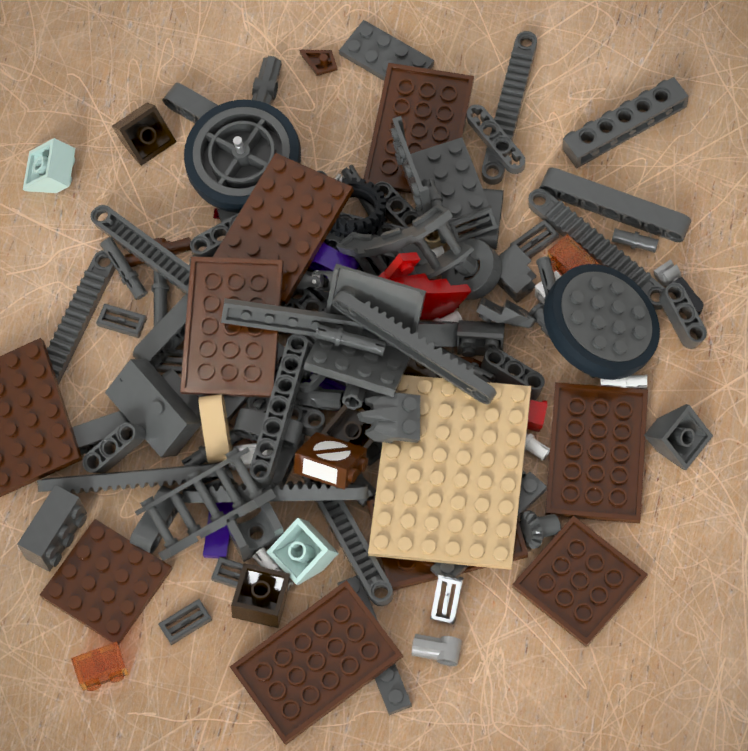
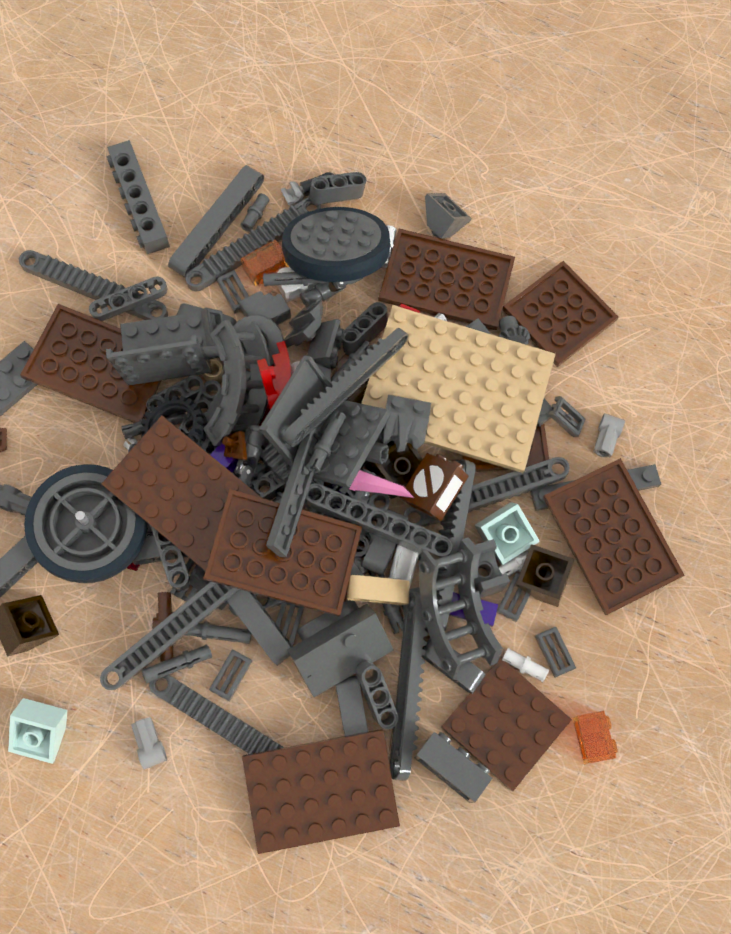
camera: 90 degrees left, 5 degrees up
(42, 265) = (150, 748): none -> light grey piece
(166, 591) = (525, 665): none -> white pin
(325, 398) = (372, 483): none -> bright pink bar
(330, 262) = (235, 446): none -> reddish brown piece

